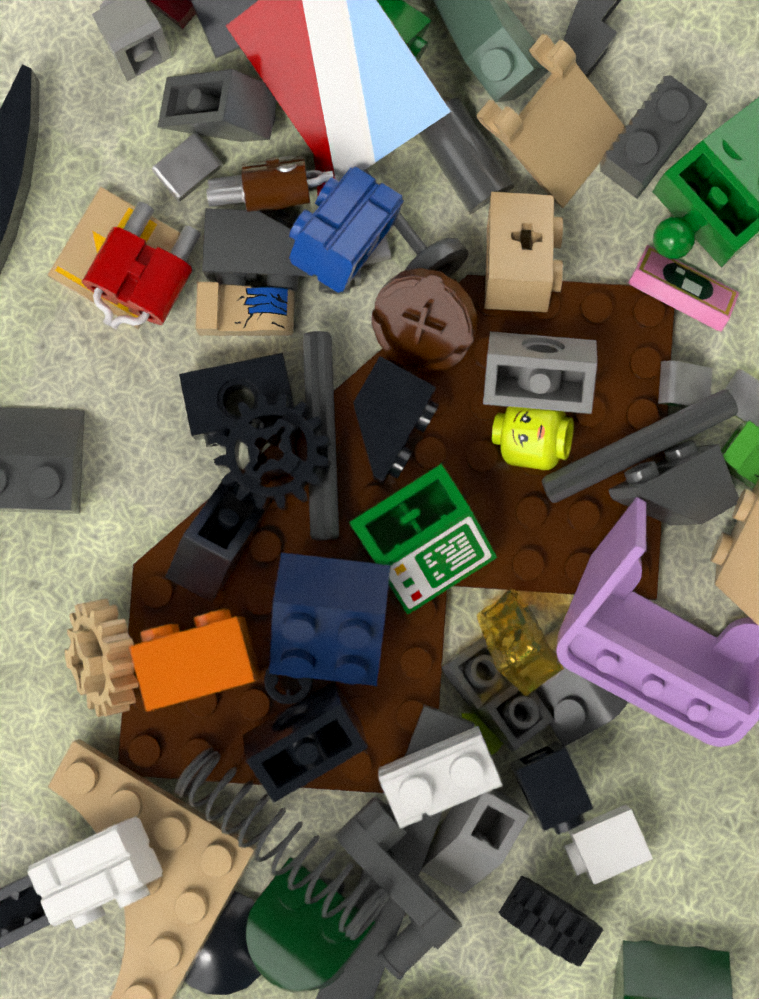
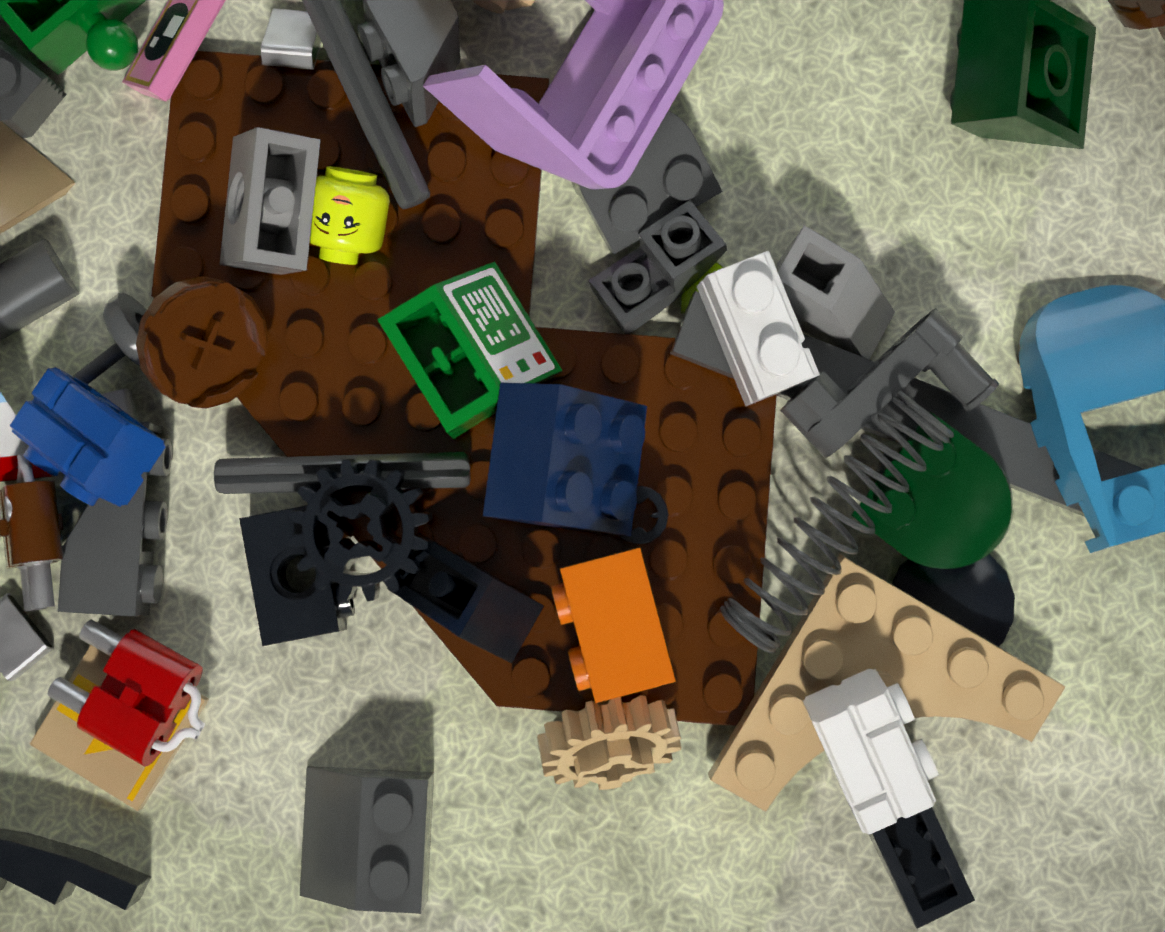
camera: 85 degrees left, 0 degrees up
(244, 310) = (188, 567): tan leg -> none
(304, 742) = (714, 494): black brick -> none
(387, 414) = (317, 390): black slope -> none
(518, 643) = (598, 238): clear yellow leg -> none
(520, 252) = (124, 227): tan brick -> none
(550, 921) = (929, 206): black tyre -> none
(552, 788) = (771, 199): black brick -> none
(607, 845) = (838, 139): white brick -> none

